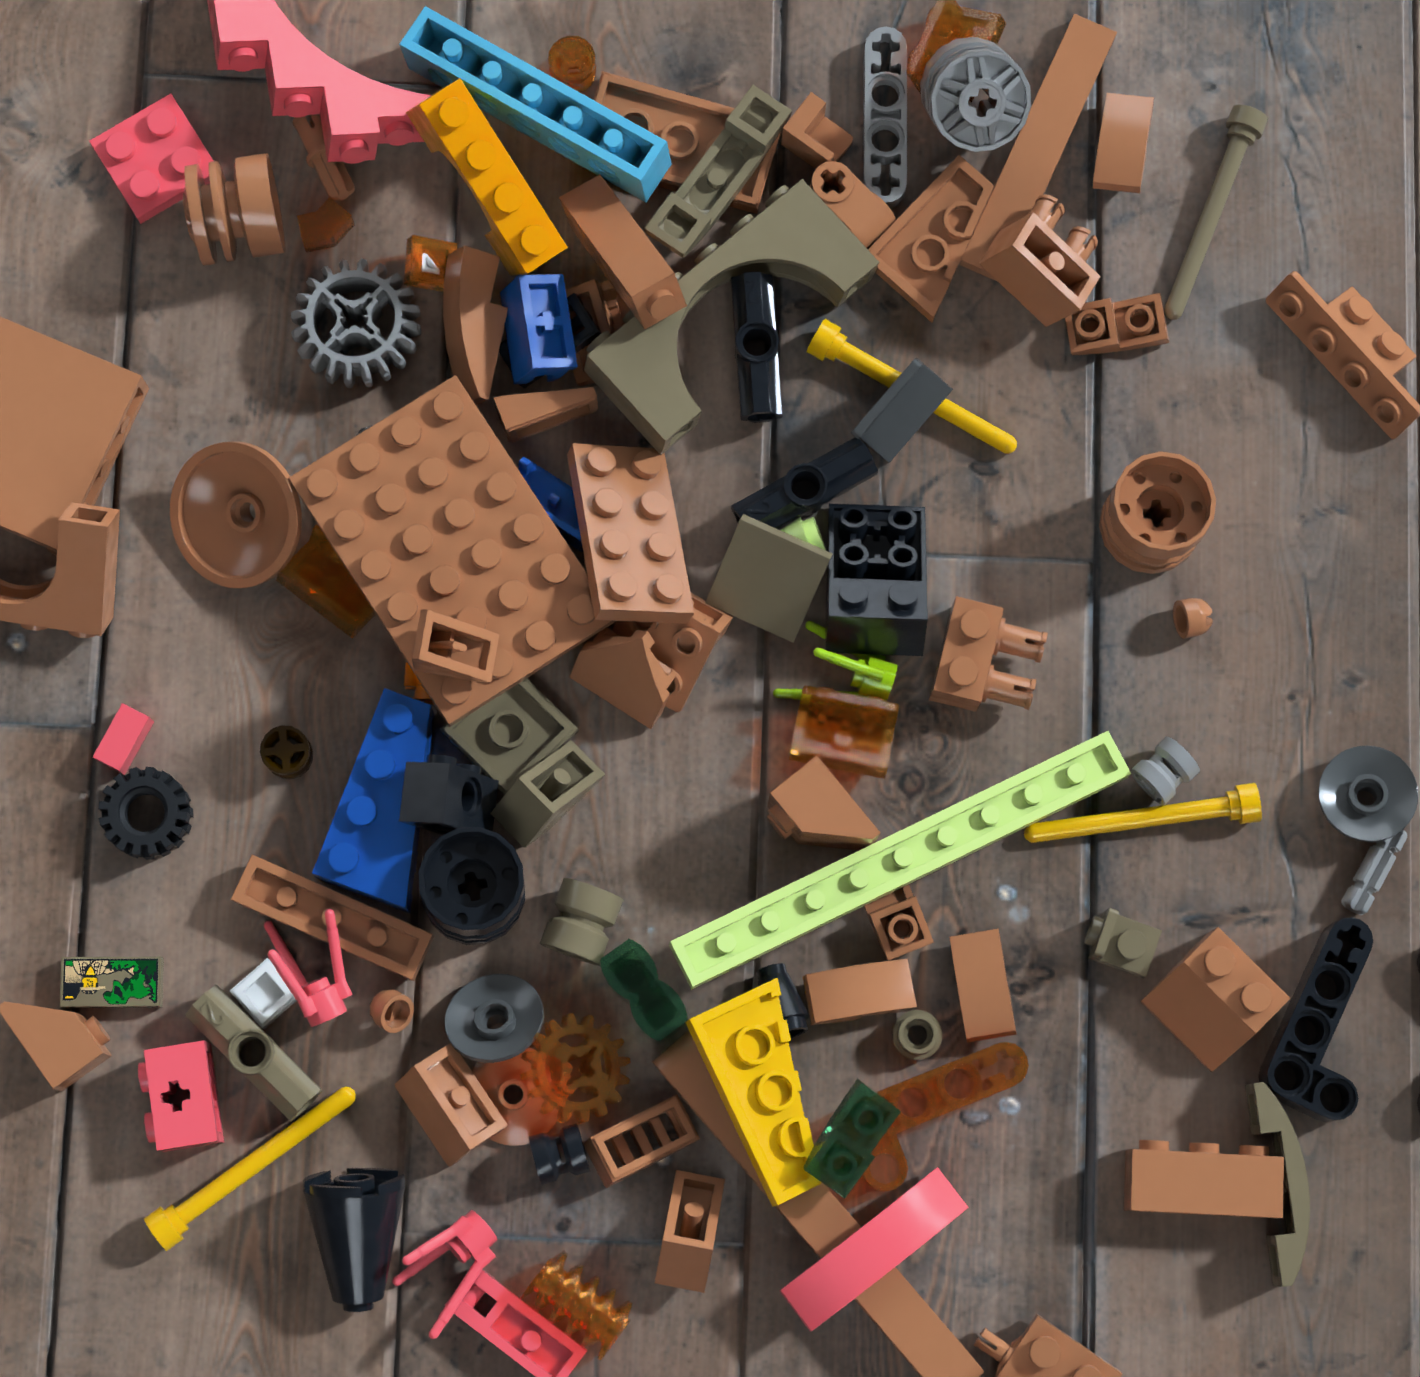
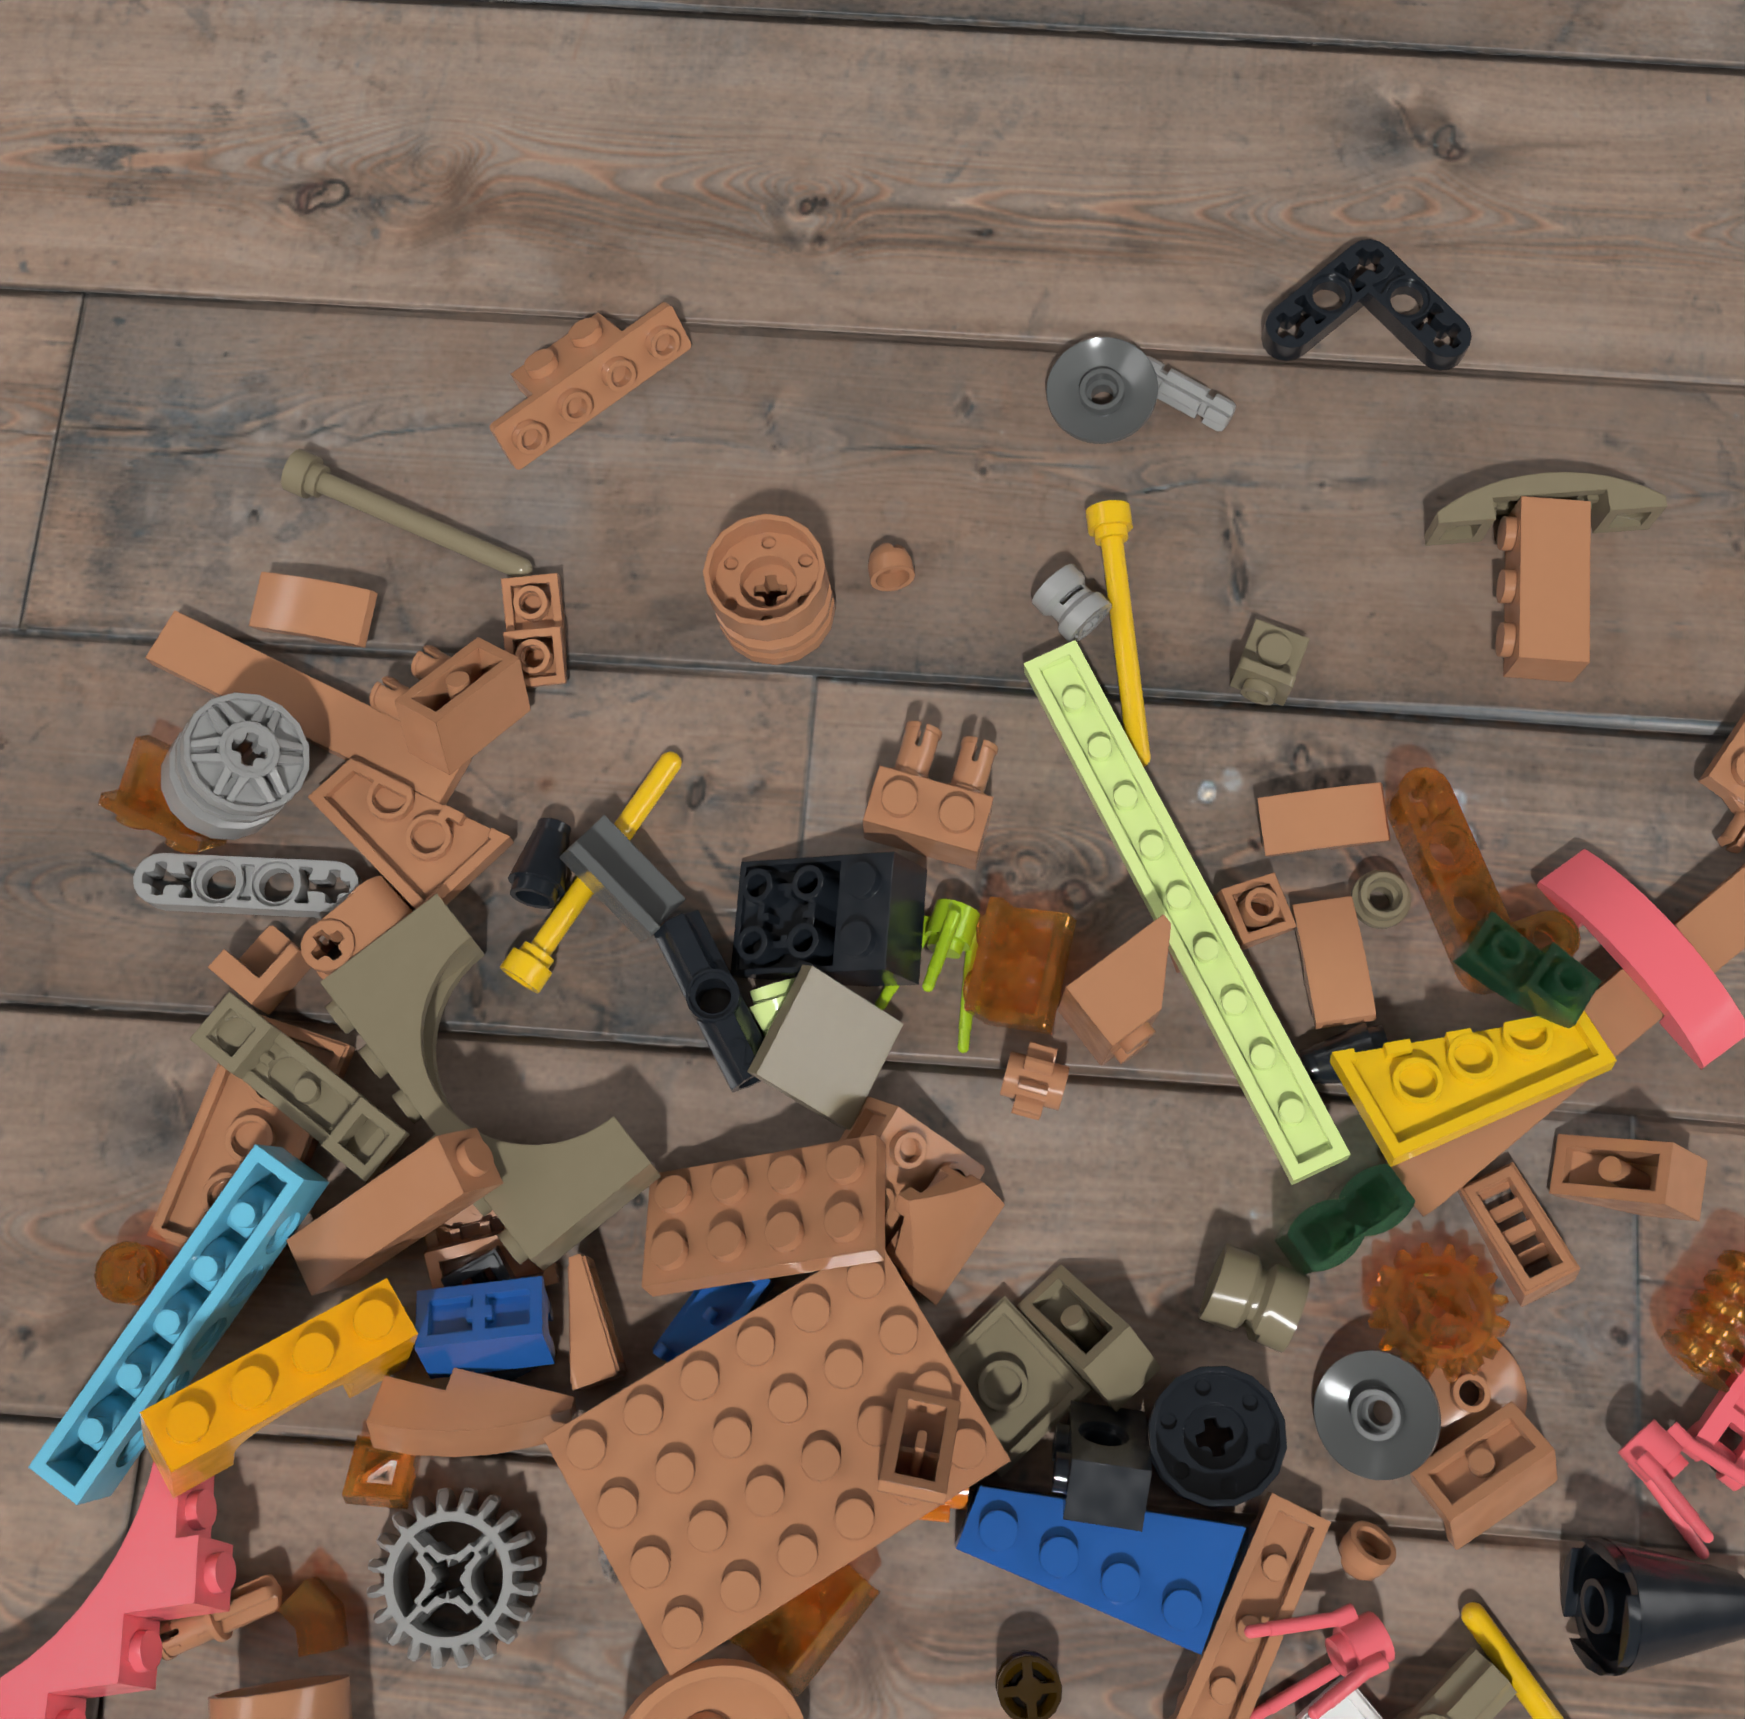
camera: 80 degrees left, 5 degrees down
(548, 1158) = (1548, 1350): black wheel -> none
(749, 746) = (1034, 1080): none -> nougat gear
(756, 319) = (492, 1052): black piece -> none
(904, 342) = (539, 872): none -> black cone
(1215, 999) = (1335, 564): nougat slope -> none
(1325, 1016) = (1355, 448): black beam -> none

